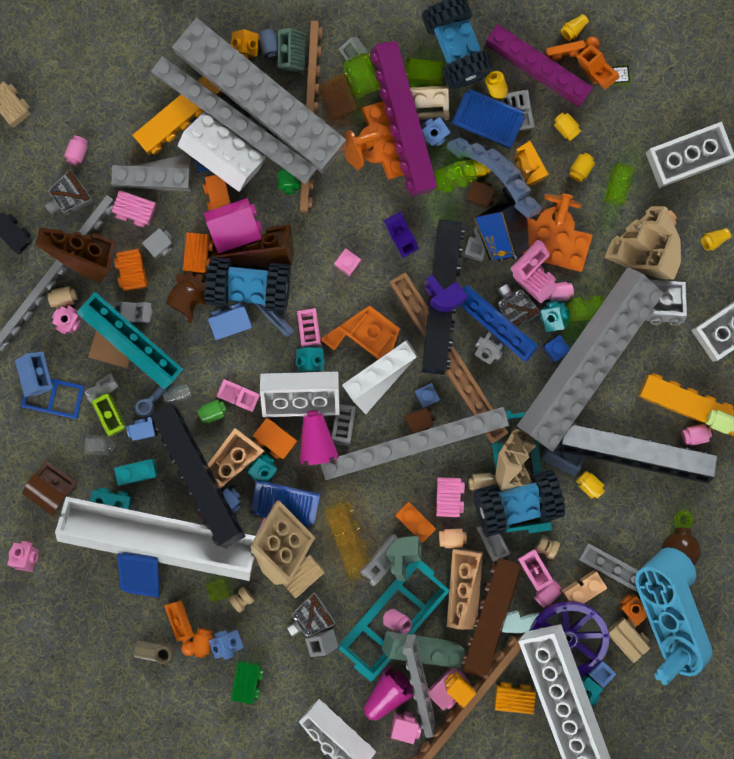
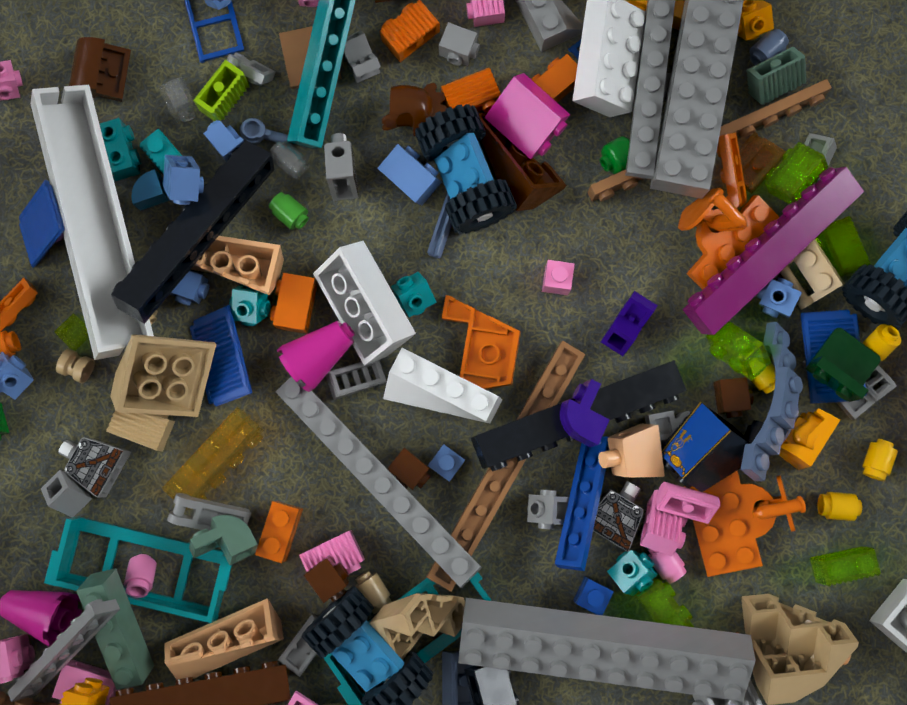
camera: 65 degrees right, 5 degrees down
(150, 495) = (149, 191): none -> dark azure brick
(161, 467) = (182, 179): none -> medium blue brick
(206, 364) = (340, 168): none -> light grey torso
(237, 395) = (325, 231): bright pink slope -> none
(306, 313) = (439, 293): bright pink slope -> none
(339, 115) = (732, 169): none -> orange plate
(452, 538) = (282, 590): light nougat brick -> none
(461, 504) = (328, 579): none -> reddish brown brick
(483, 275) = (634, 452): none -> light nougat torso
(498, 116) = (844, 365): none -> dark green bracket

